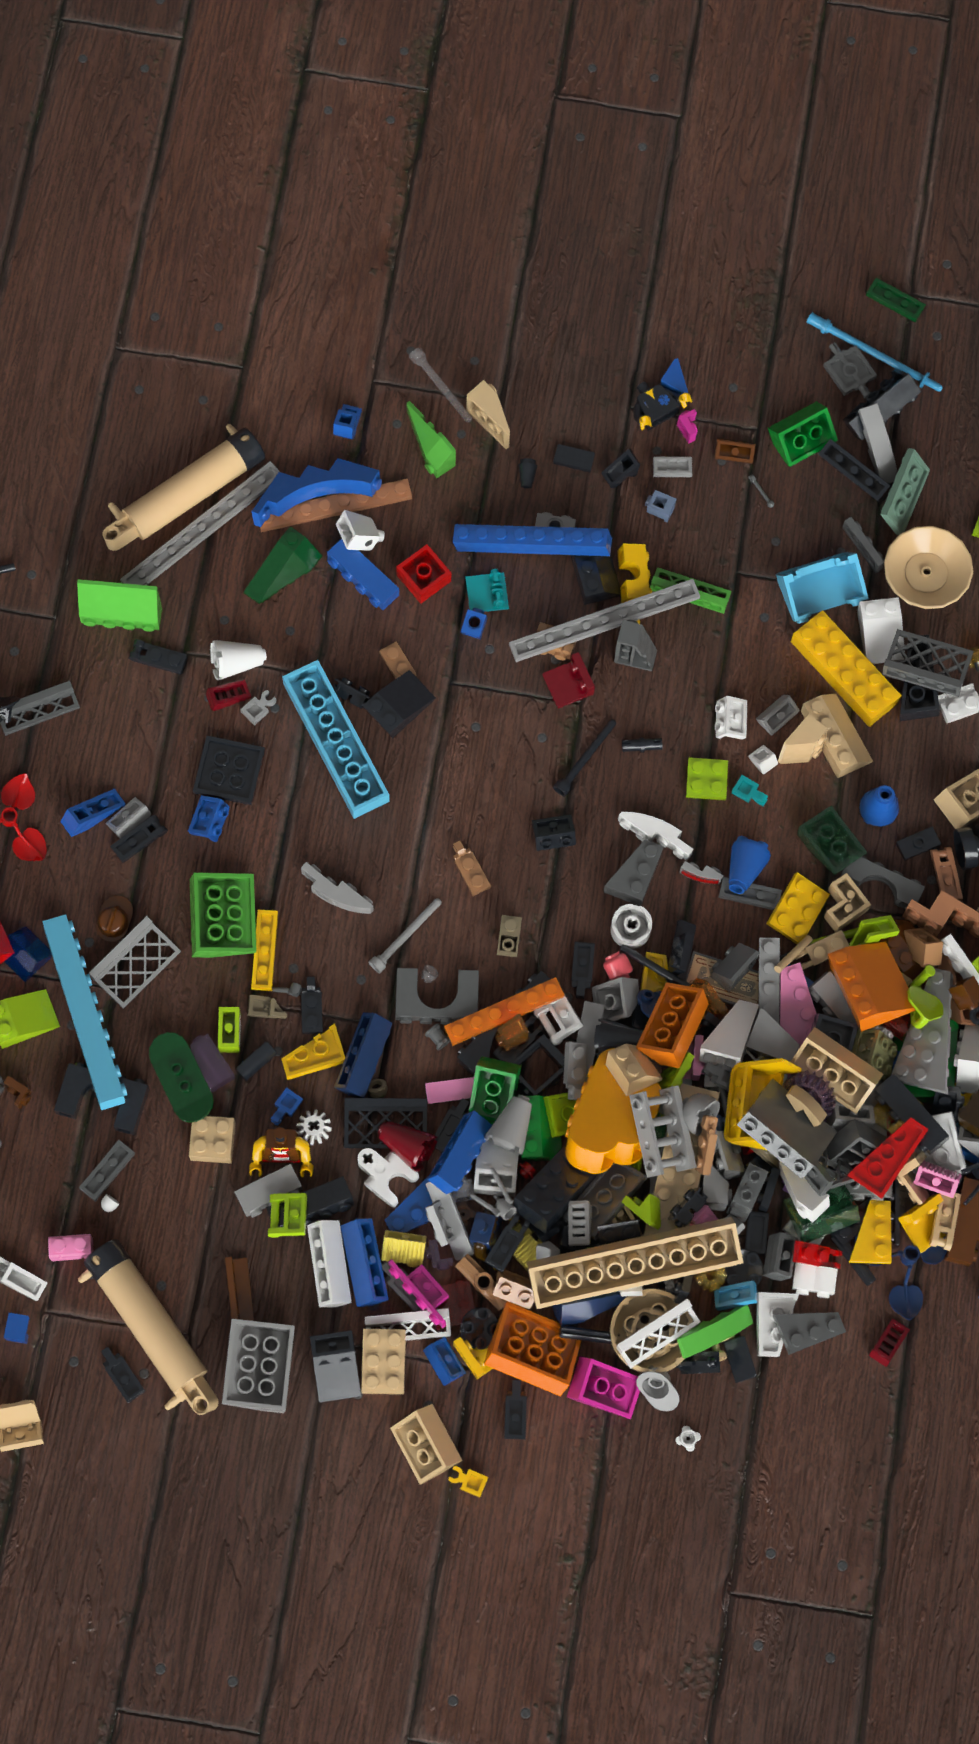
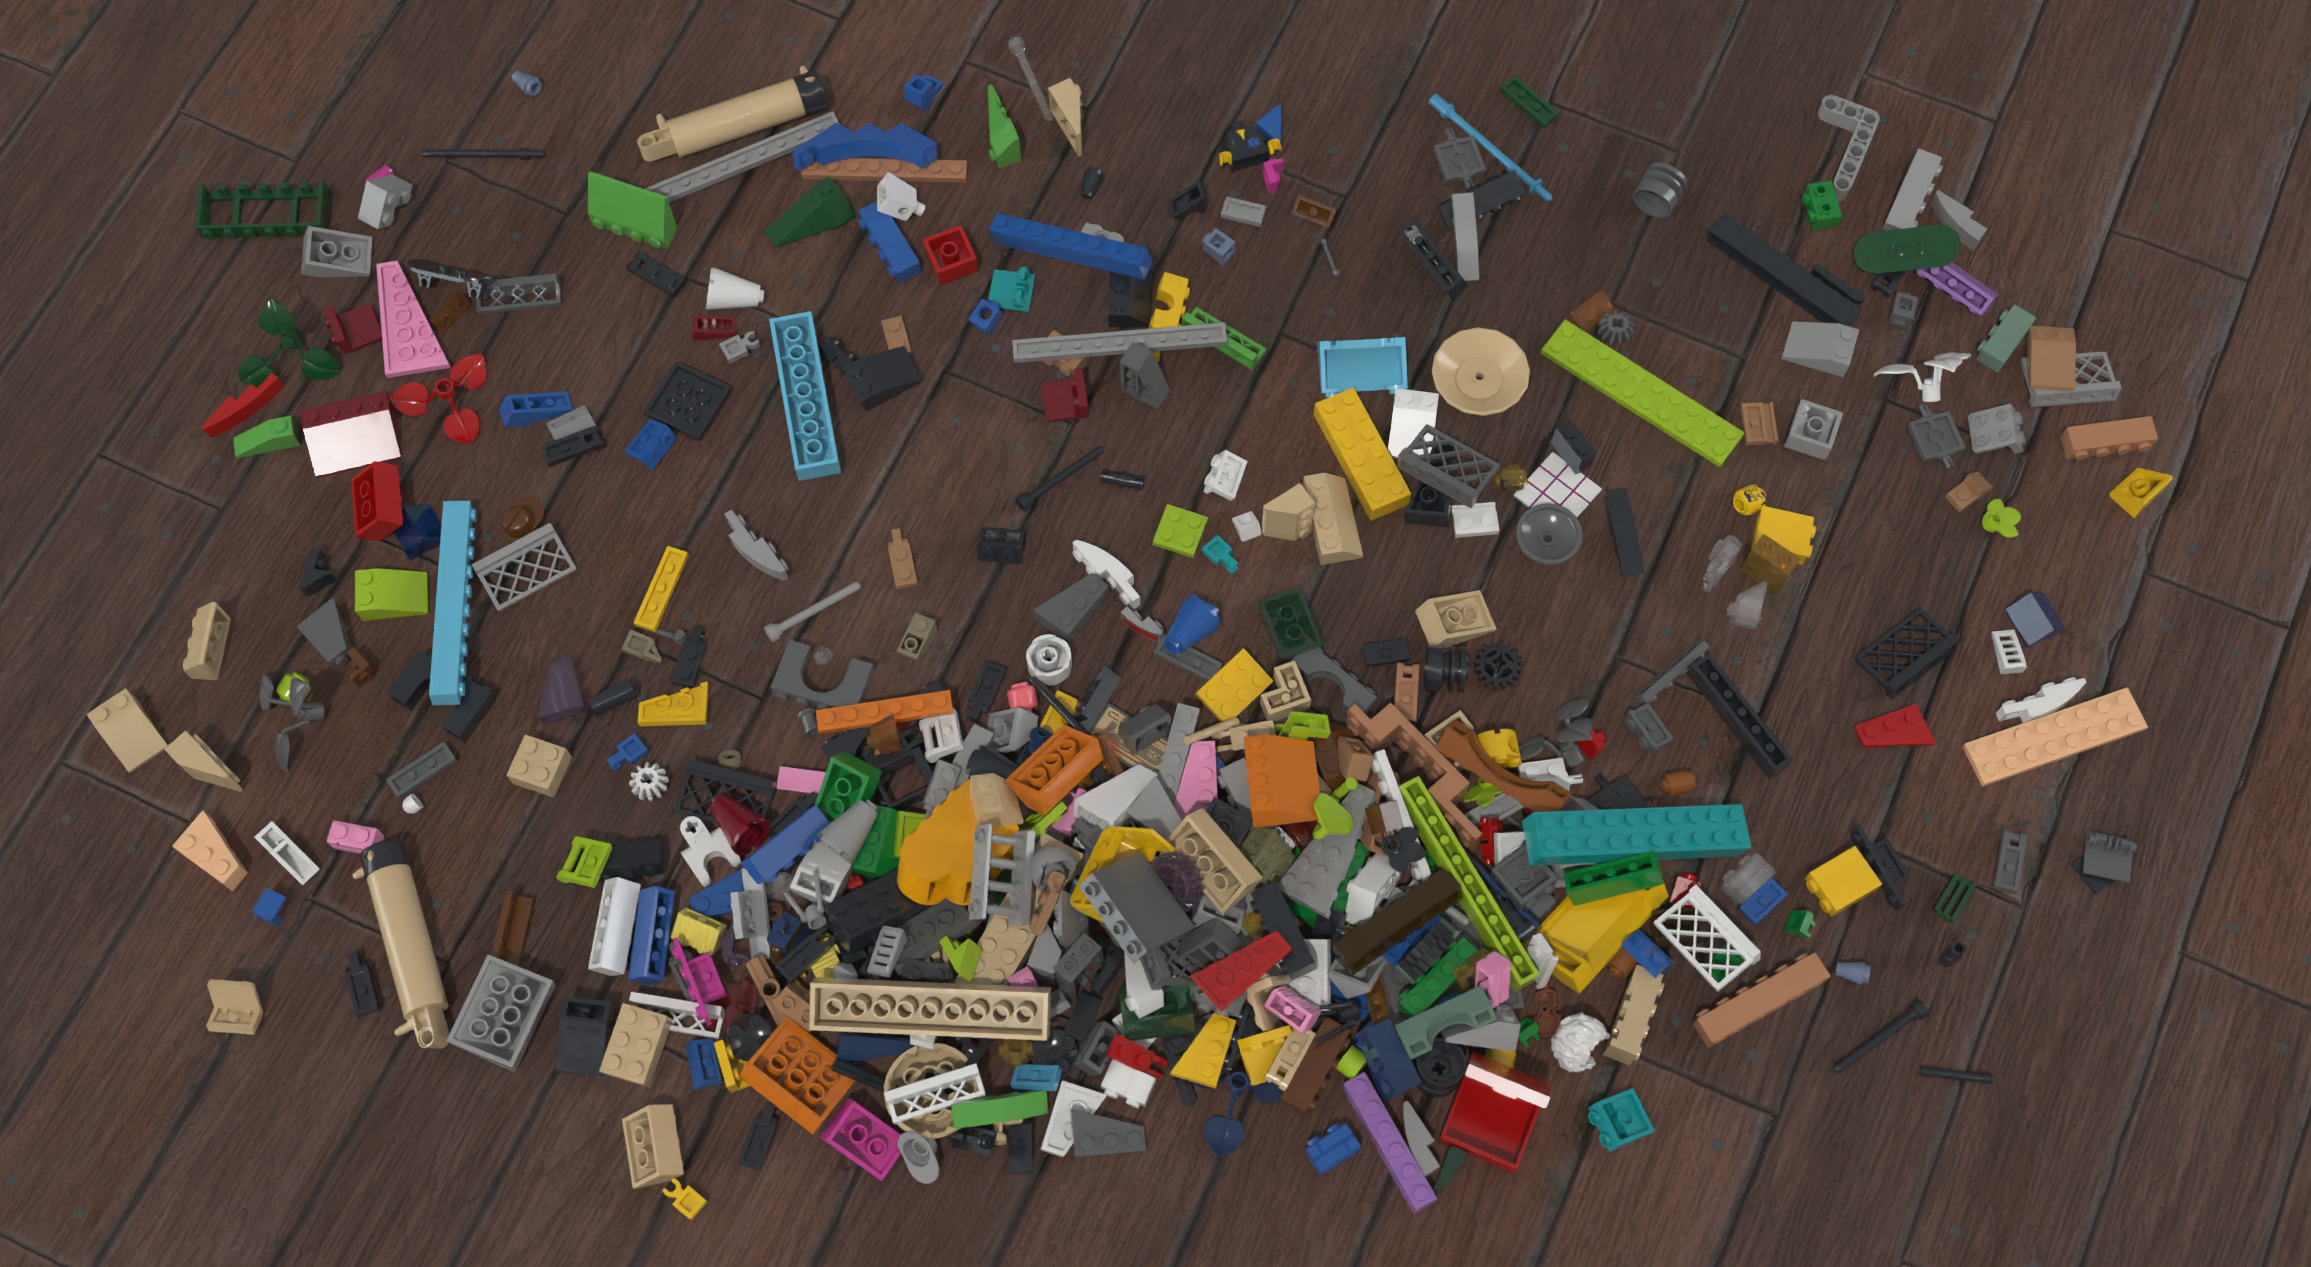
camera: 20 degrees right, 5 degrees down
(181, 1077) = (527, 692): dark green piece -> none
(222, 914) = (629, 541): bright green slope -> none
(229, 1030) = (595, 658): lime brick -> none
(257, 1194) = (560, 834): light grey brick -> none
(281, 1146) = (606, 792): torso -> none
(363, 1055) = (724, 720): dark blue brick -> none
(574, 458) = (1144, 180): black tile -> none
(681, 1212) = (999, 970): black hinge -> none
(687, 1432) = (929, 1219): white plate -> none
(778, 714) = (1276, 484): light grey slope -> none
(803, 433) = (1389, 209): green slope -> none
(804, 1101) = (1163, 880): tan slope -> none
(863, 544) = (1420, 334): dark grey plate -> none
(879, 806) = (1355, 603): blue cone -> none
(883, 1354) = (1176, 1188): dark red slope -> none
(905, 491) = (1479, 290): sand green plate -> none

